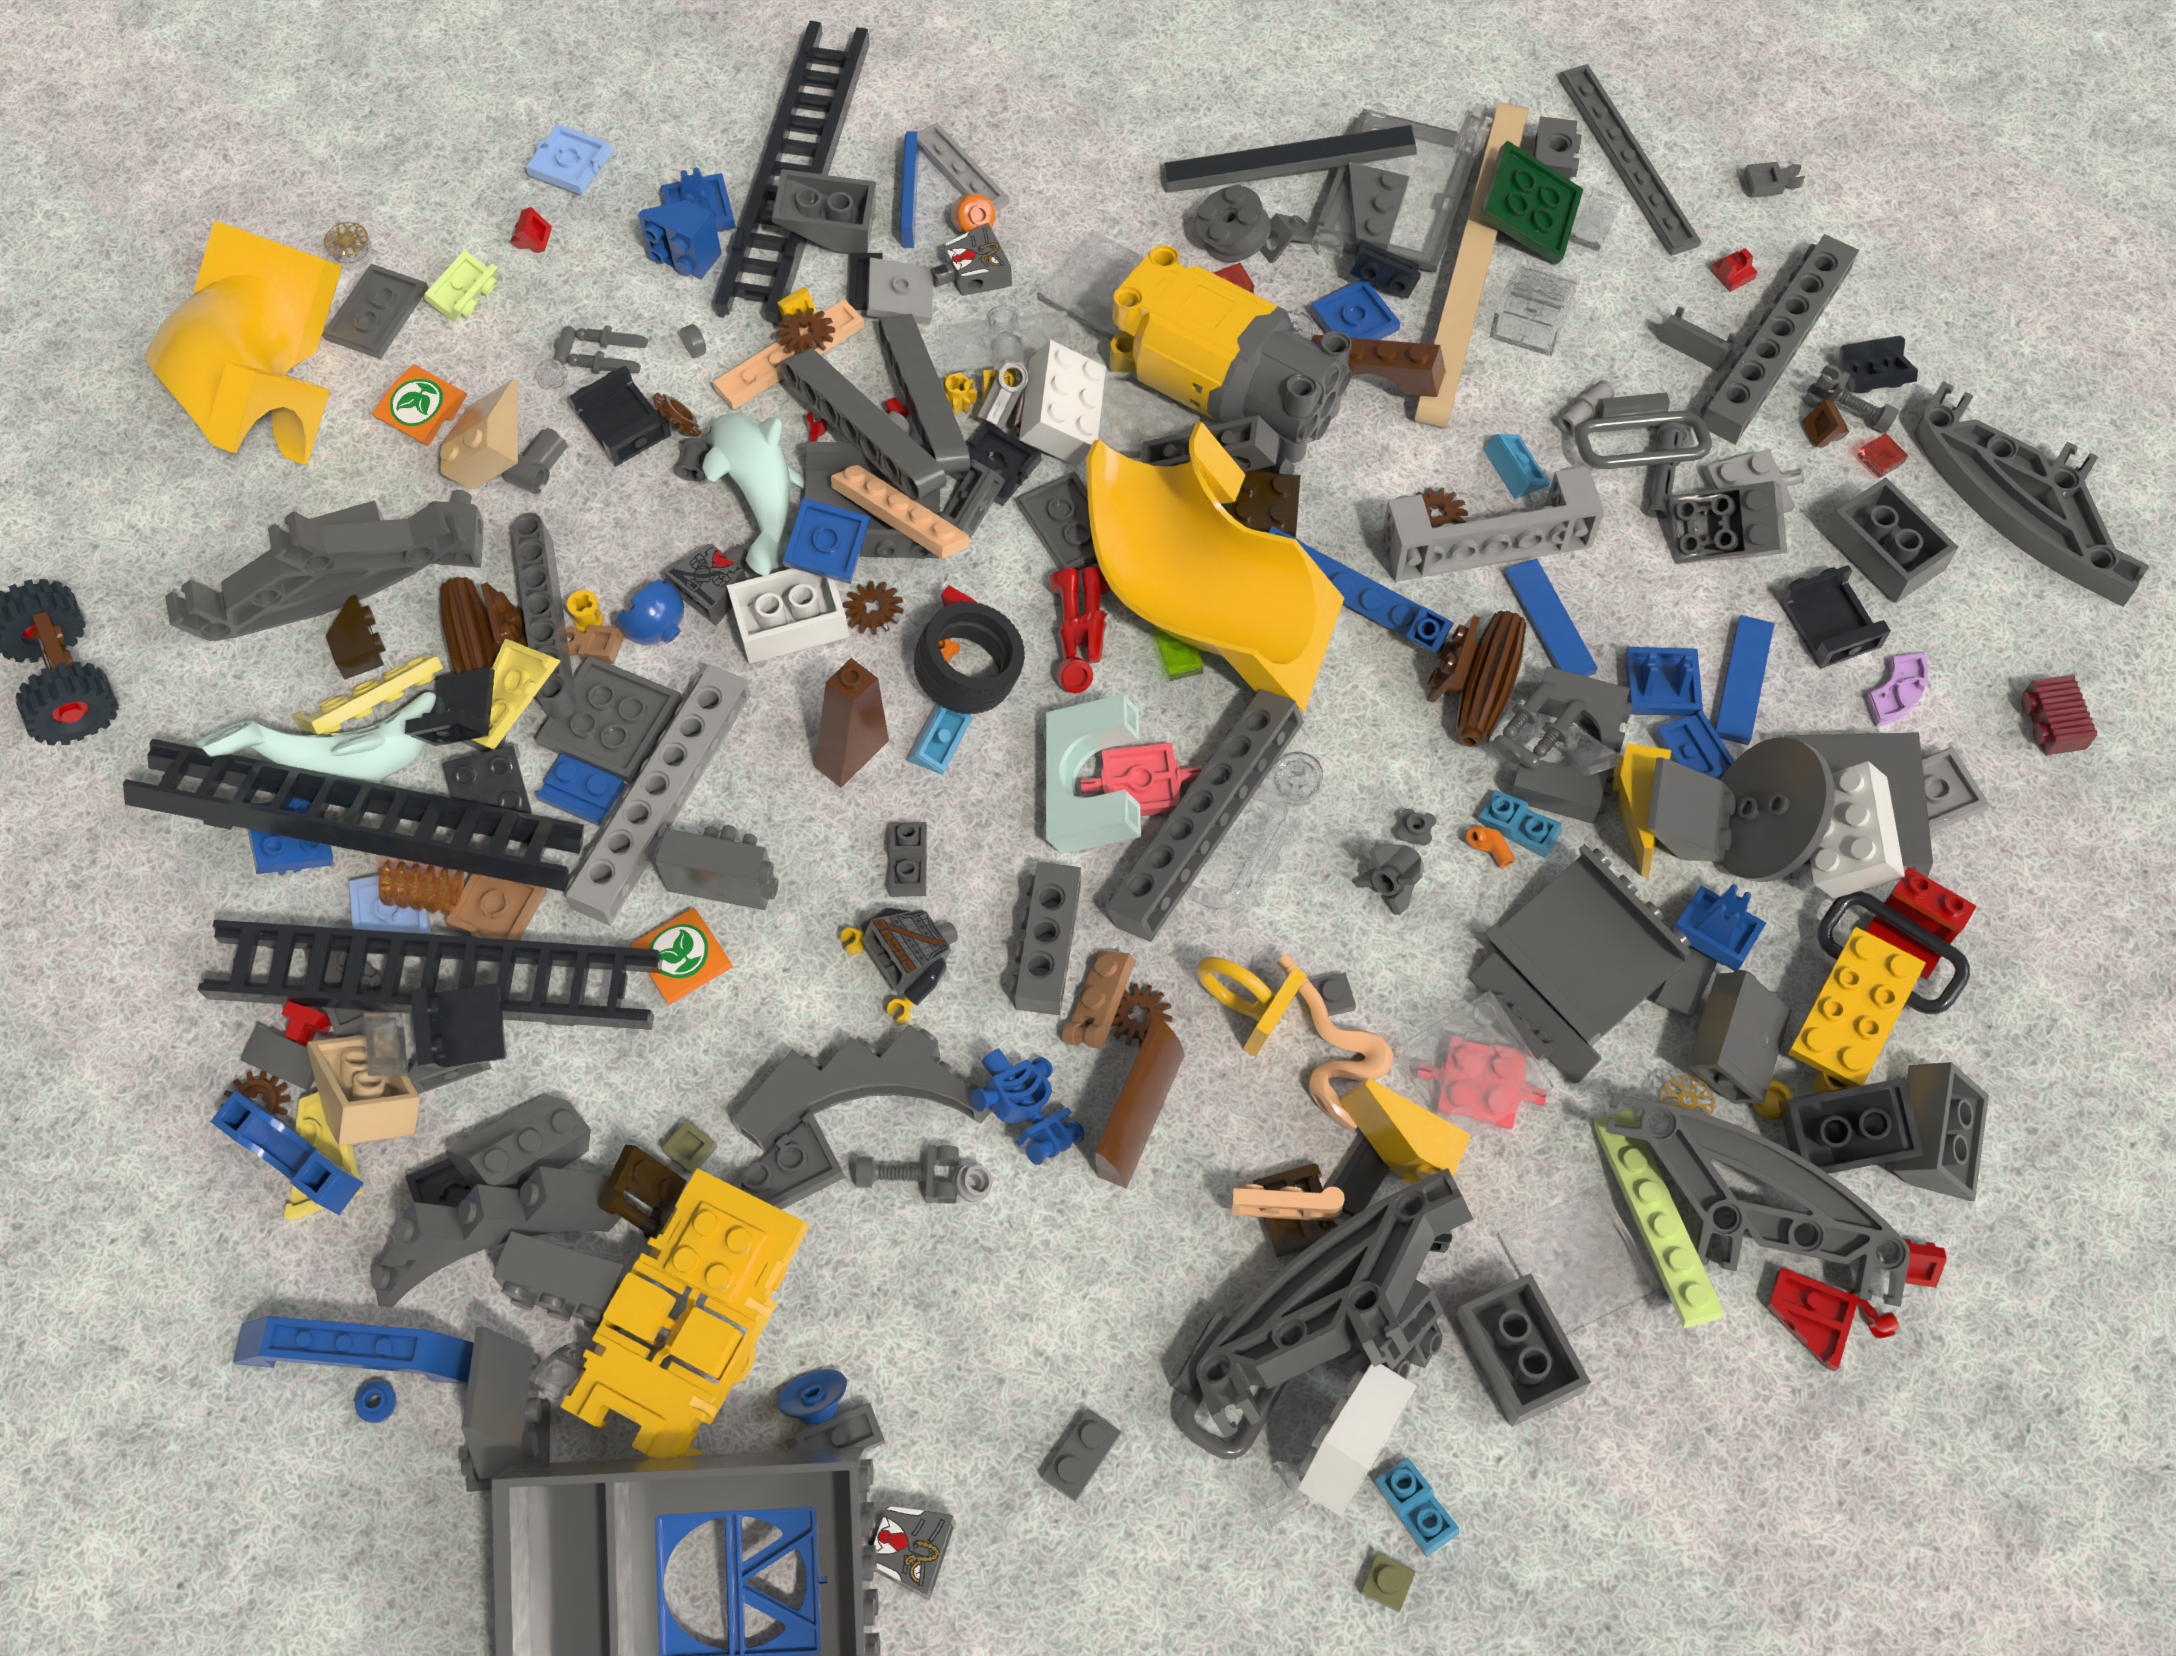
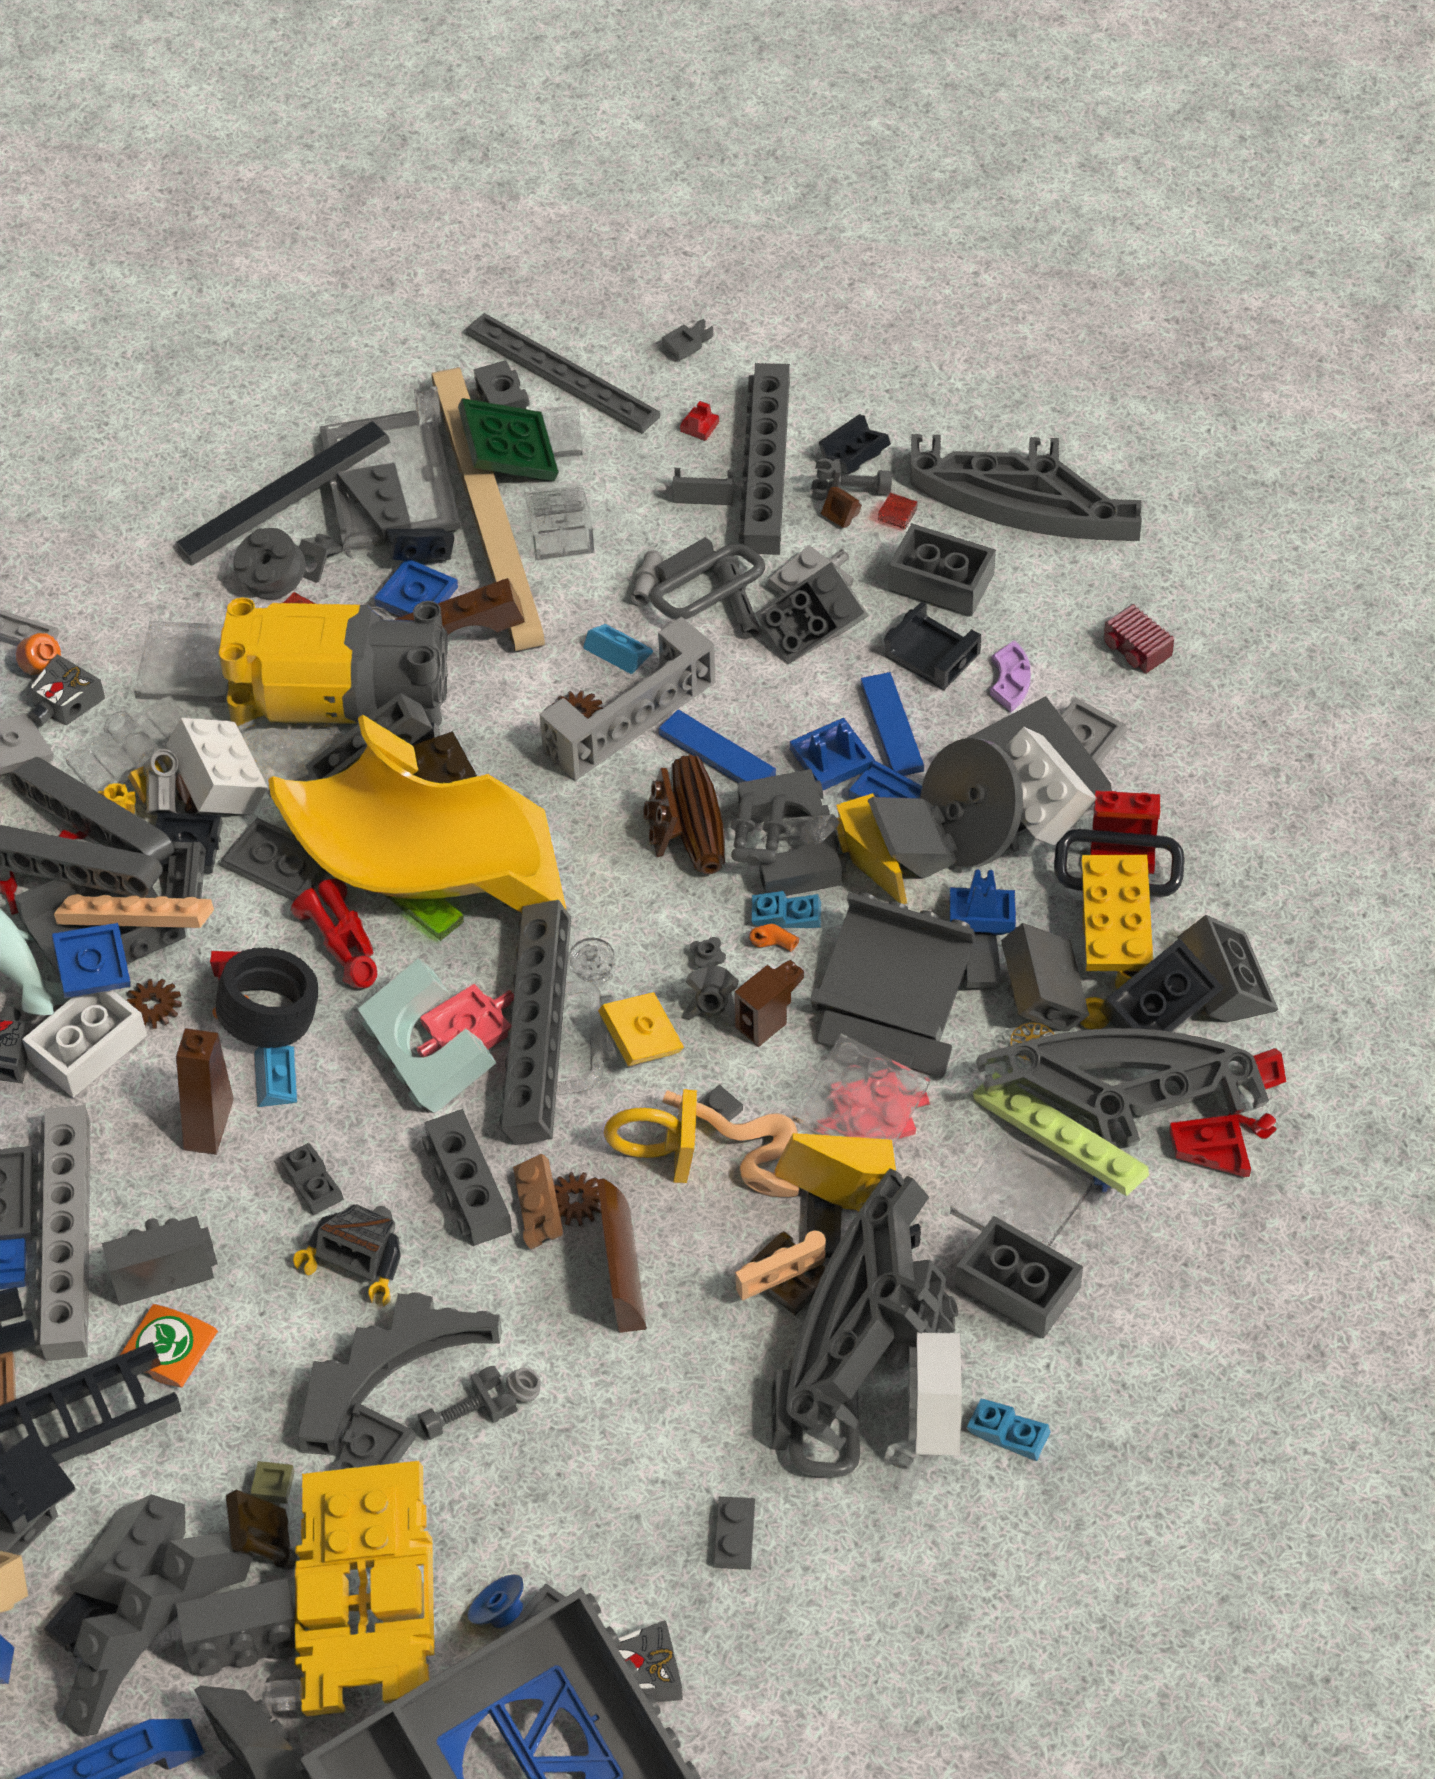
camera: 30 degrees left, 10 degrees down
(1015, 1105) = (522, 1300): blue piece -> none
(1300, 874) = (640, 1029): none -> yellow plate
(1380, 602) = (586, 801): blue slope -> none
(1388, 1582) = (1020, 1492): olive plate -> none
(1438, 909) = (764, 1001): none -> reddish brown hinge

